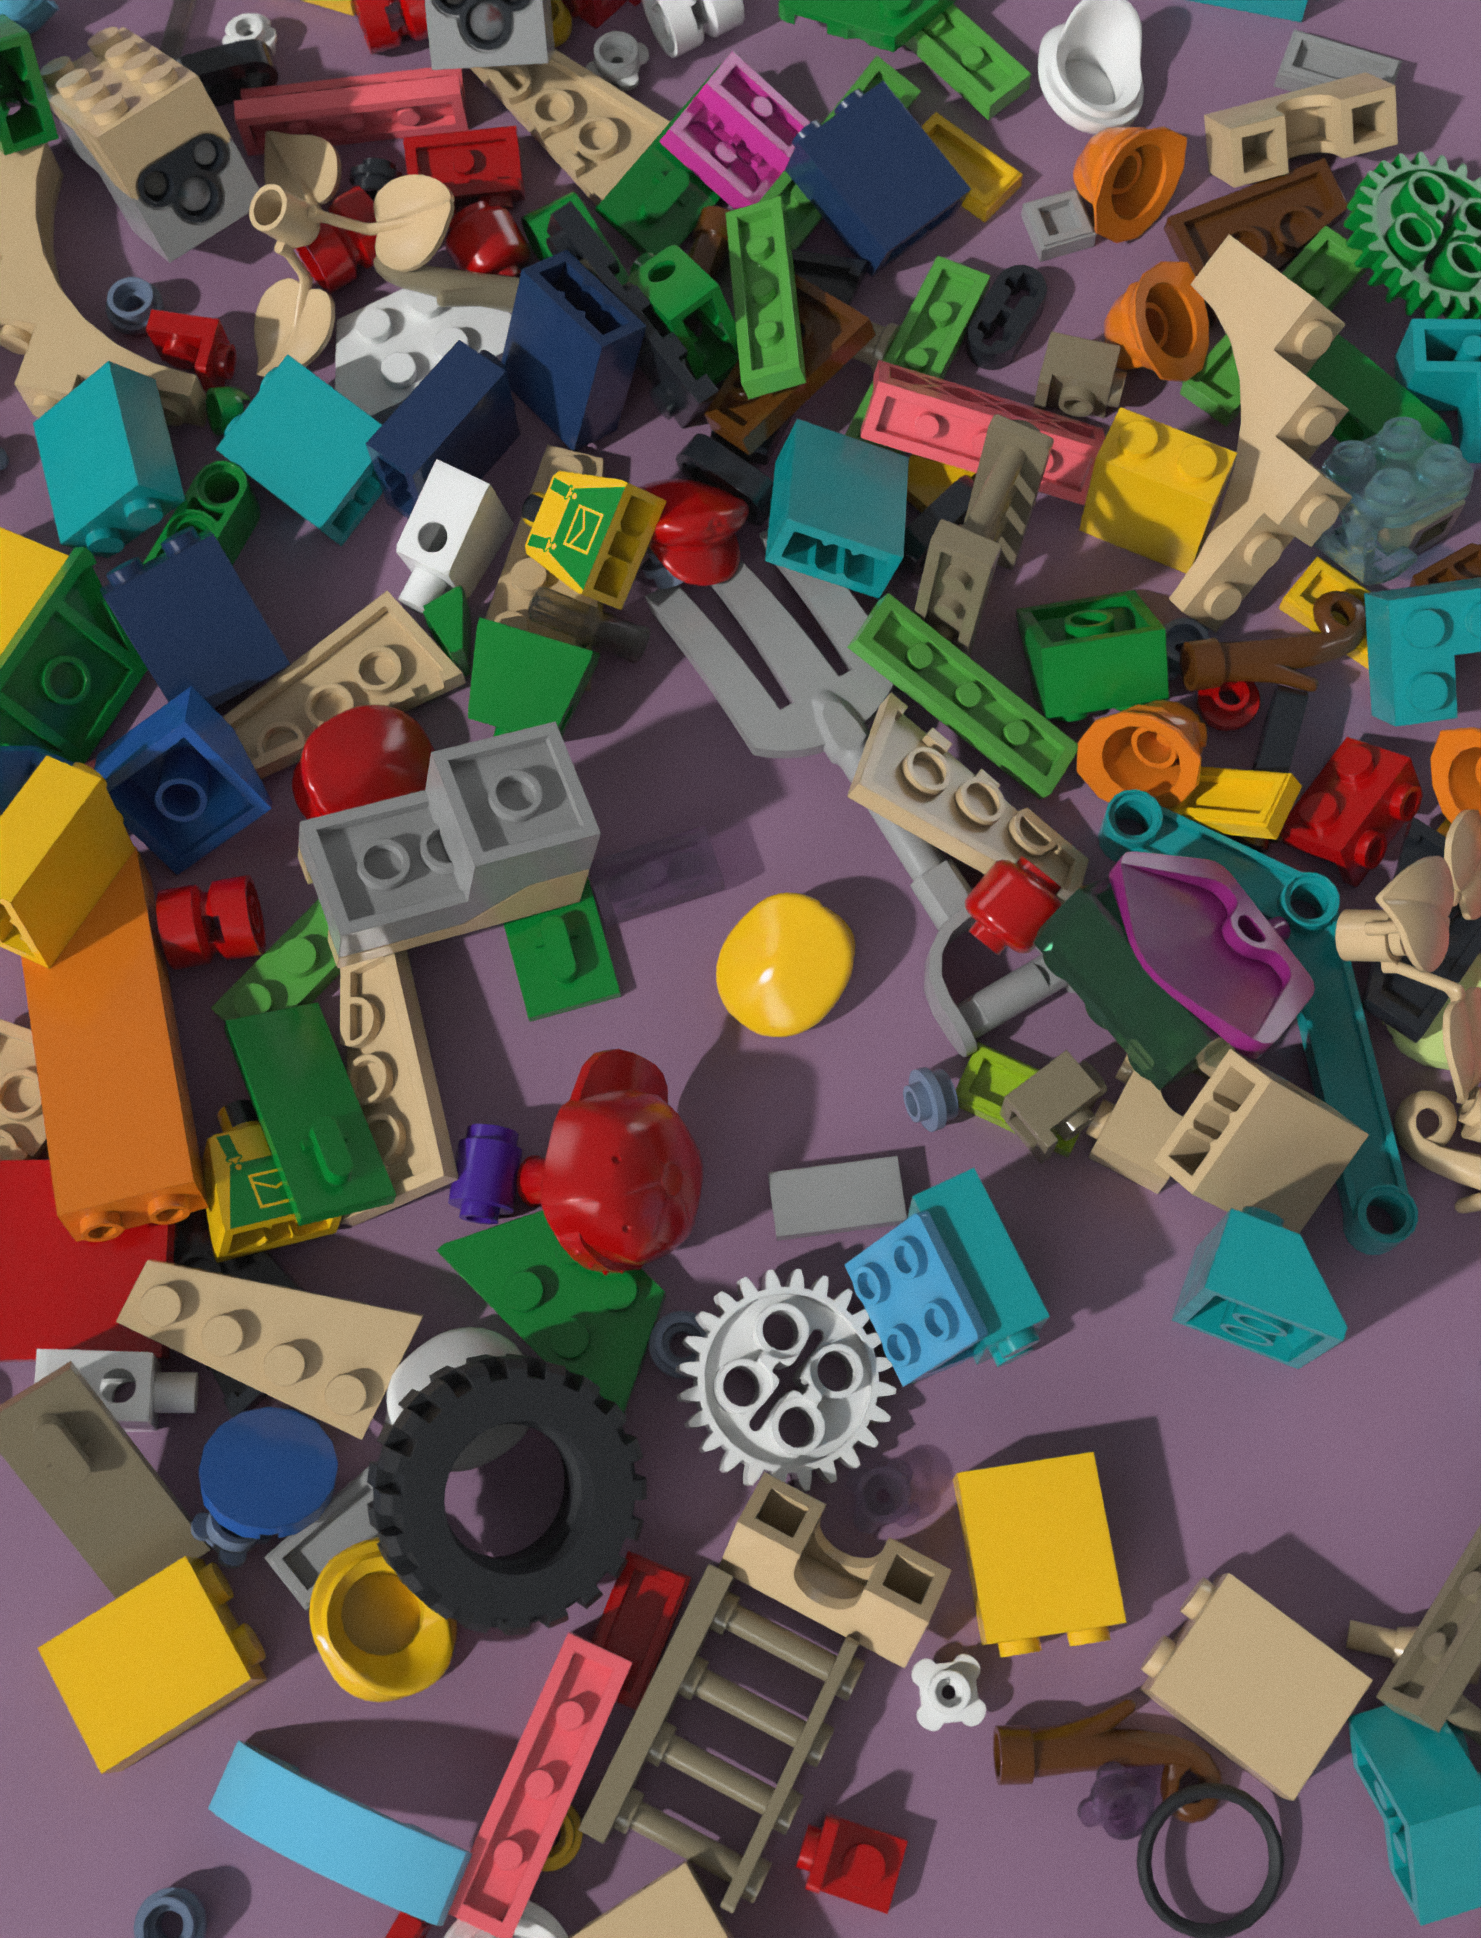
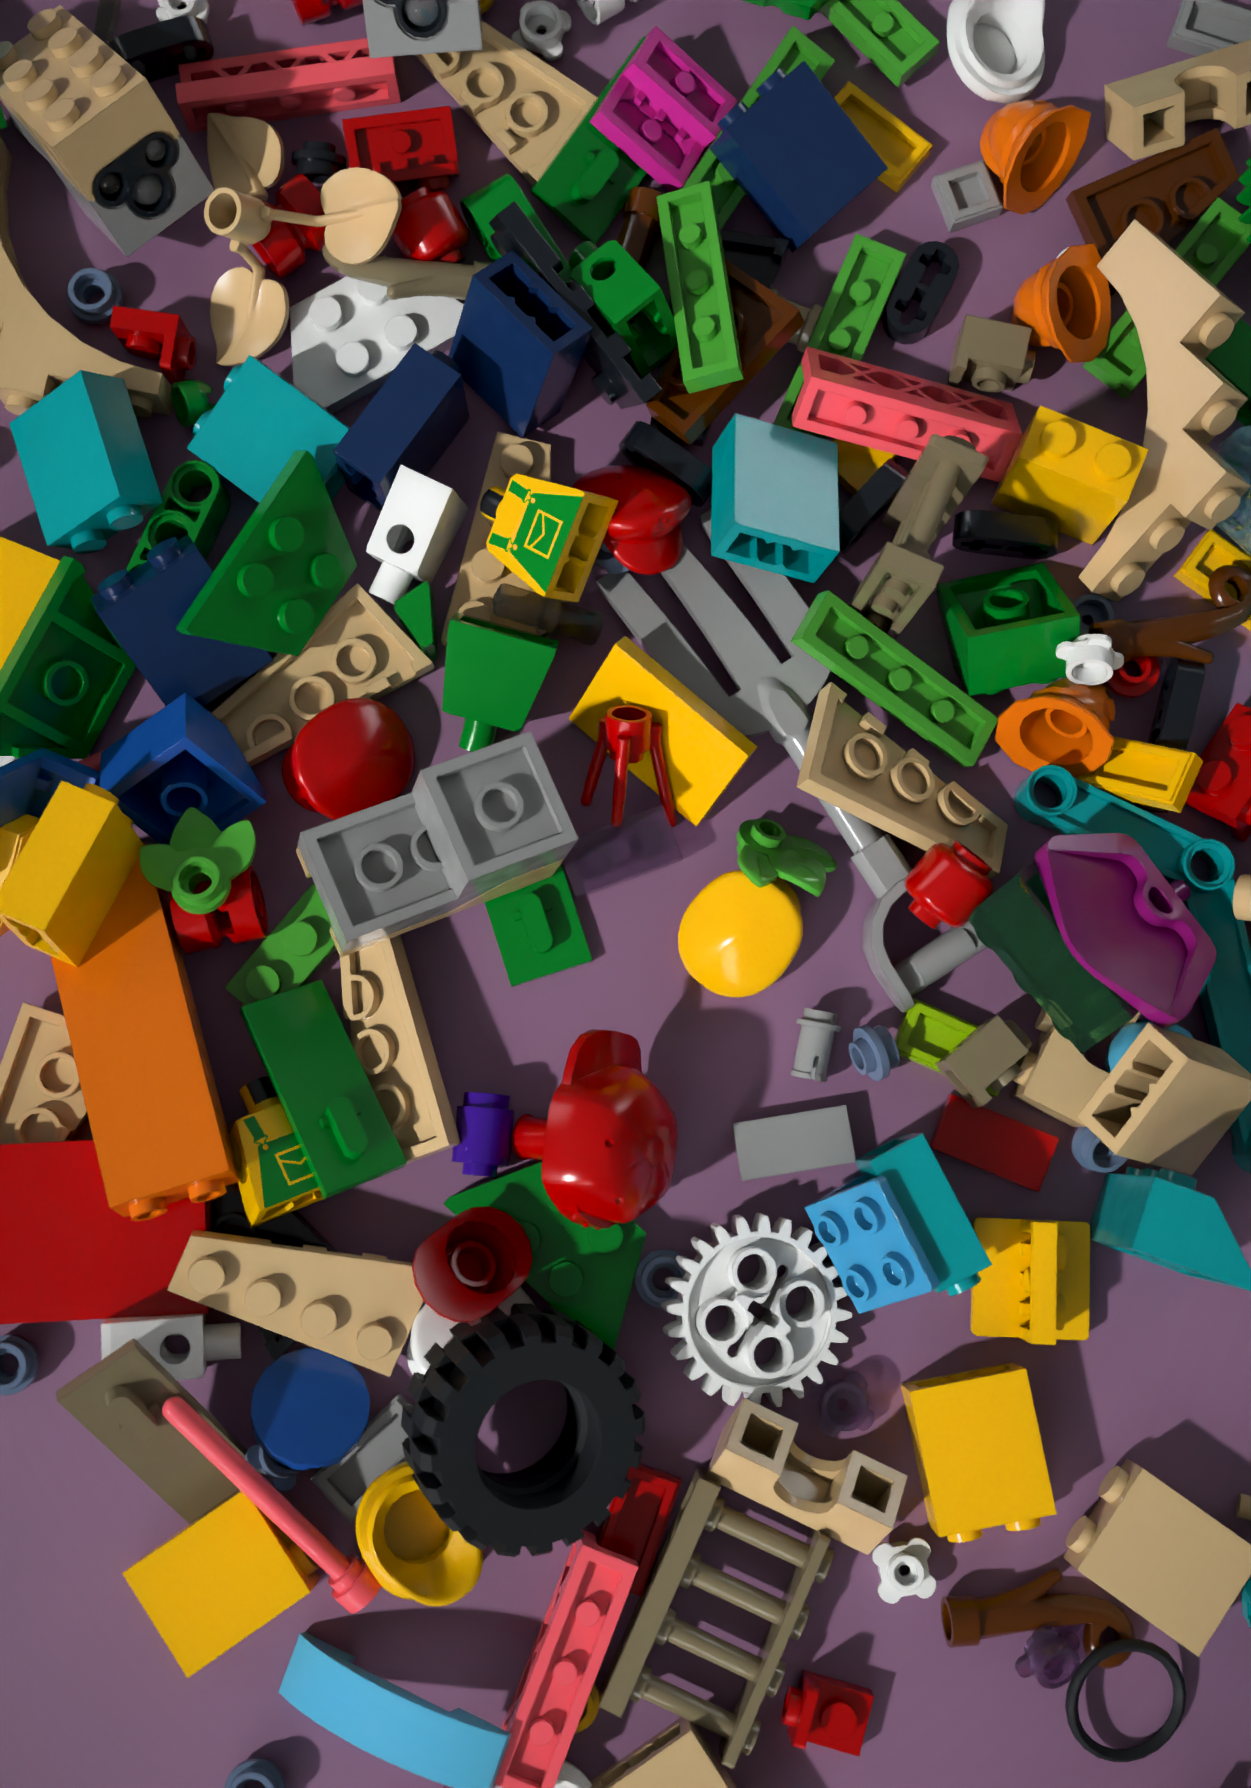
camera: 10 degrees left, 10 degrees up
(190, 857) = (197, 855): none -> bright green plate
(299, 1671) = (349, 1577): none -> coral piece
(301, 566) = (278, 569): none -> green wing
(460, 1303) = (472, 1264): none -> red piece
(663, 746) = (627, 735): none -> red plant
(706, 746) = (697, 743): none -> yellow tile
(818, 874) = (771, 853): none -> bright green plate
(864, 1088) = (814, 1044): none -> light grey pin
(1066, 1206) = (994, 1143): none -> red tile
(1091, 557) = (1005, 534): none -> black beam
(1106, 1358) = (1035, 1280): none -> yellow bracket
(1176, 675) = (1089, 659): none -> white plate
(1186, 1227) = (1094, 1155): none -> sand blue plate

